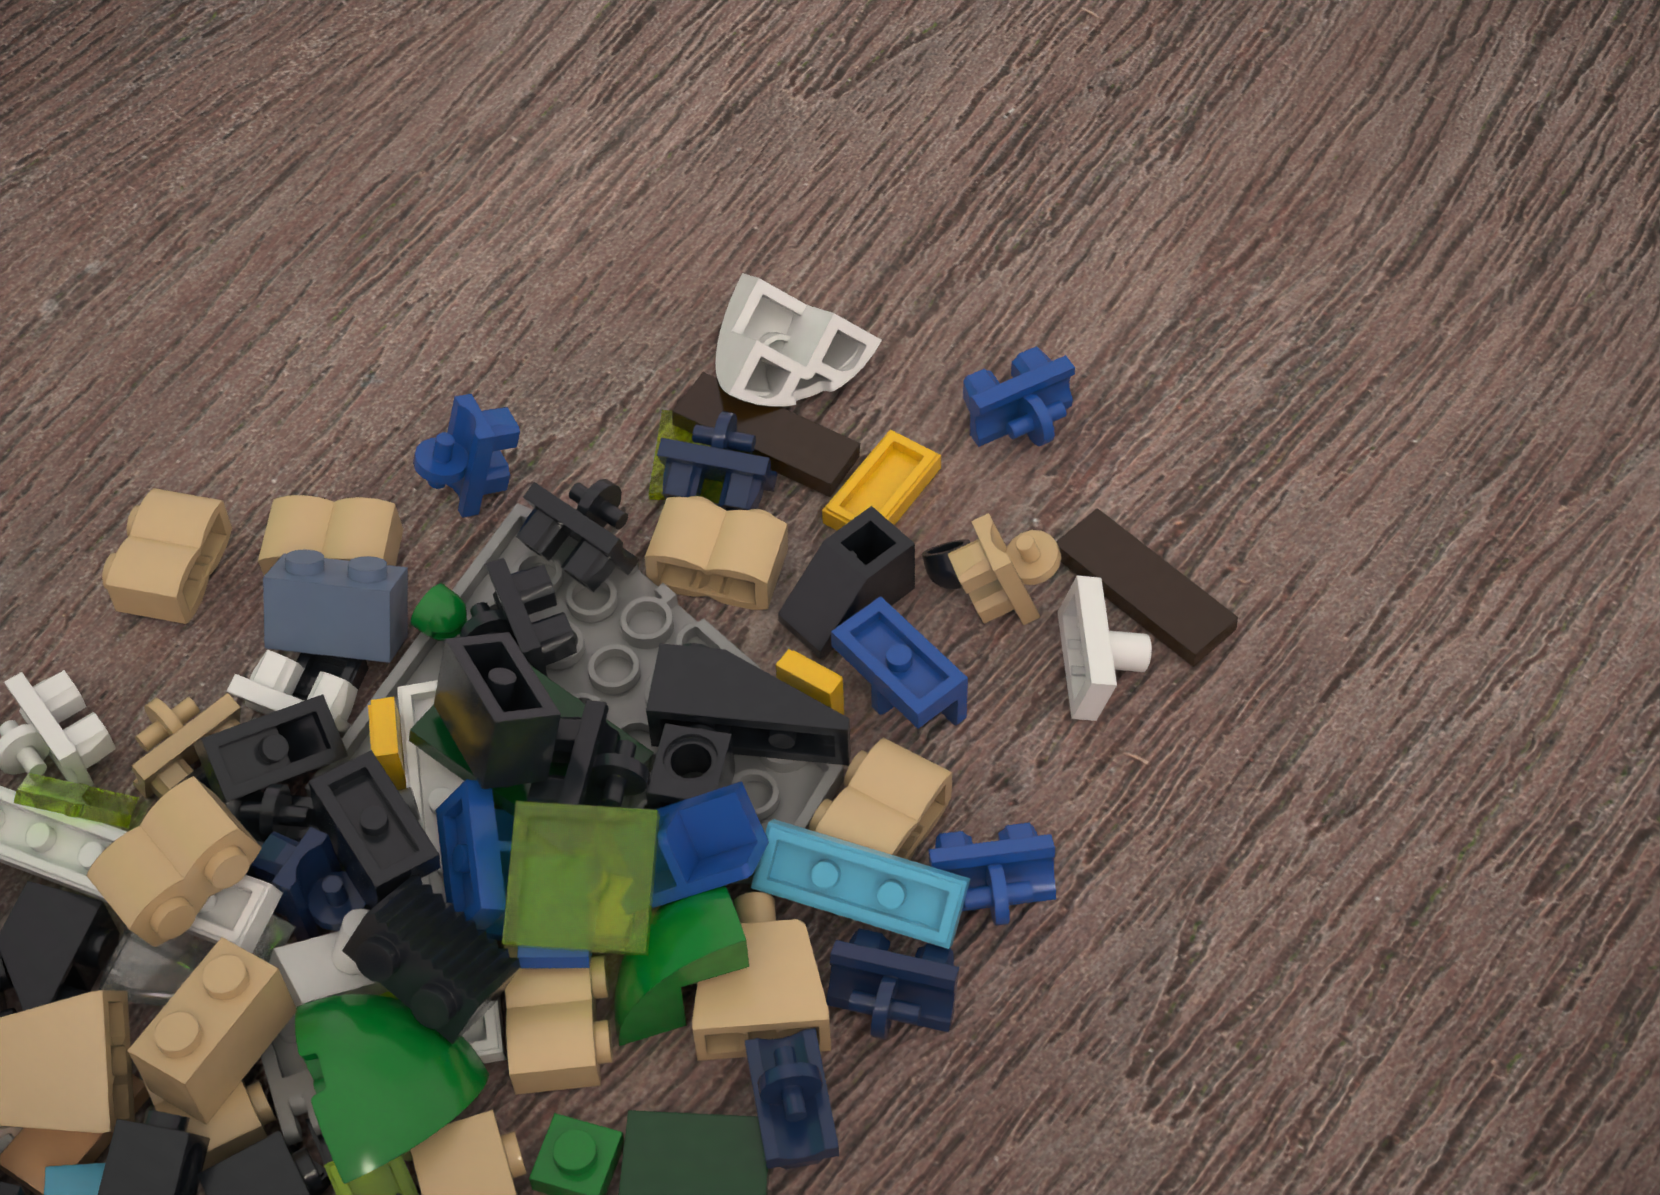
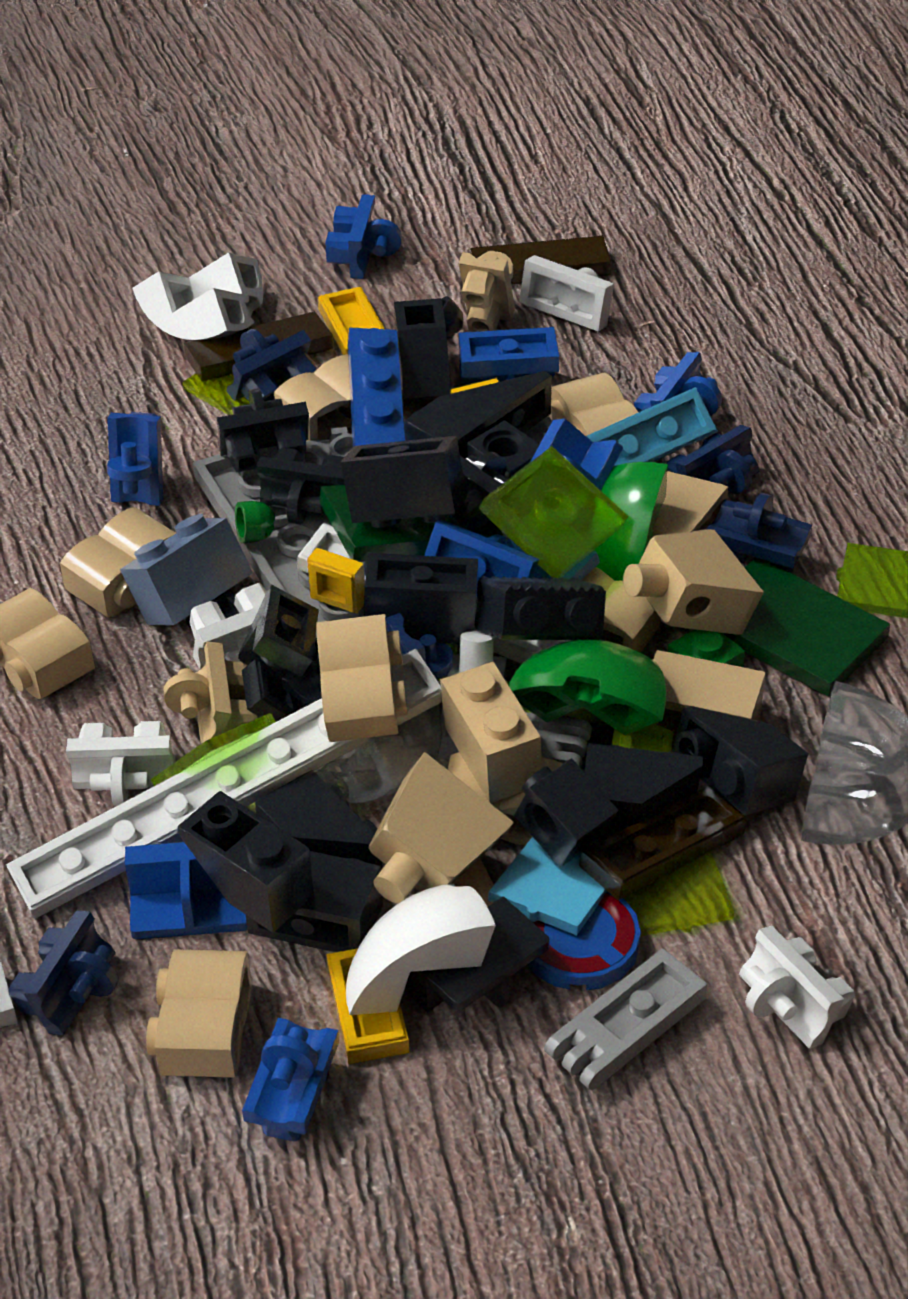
camera: 55 degrees left, 10 degrees down
(617, 1078) = (694, 582): none -> tan torso
(706, 596) = (375, 386): none -> blue plate

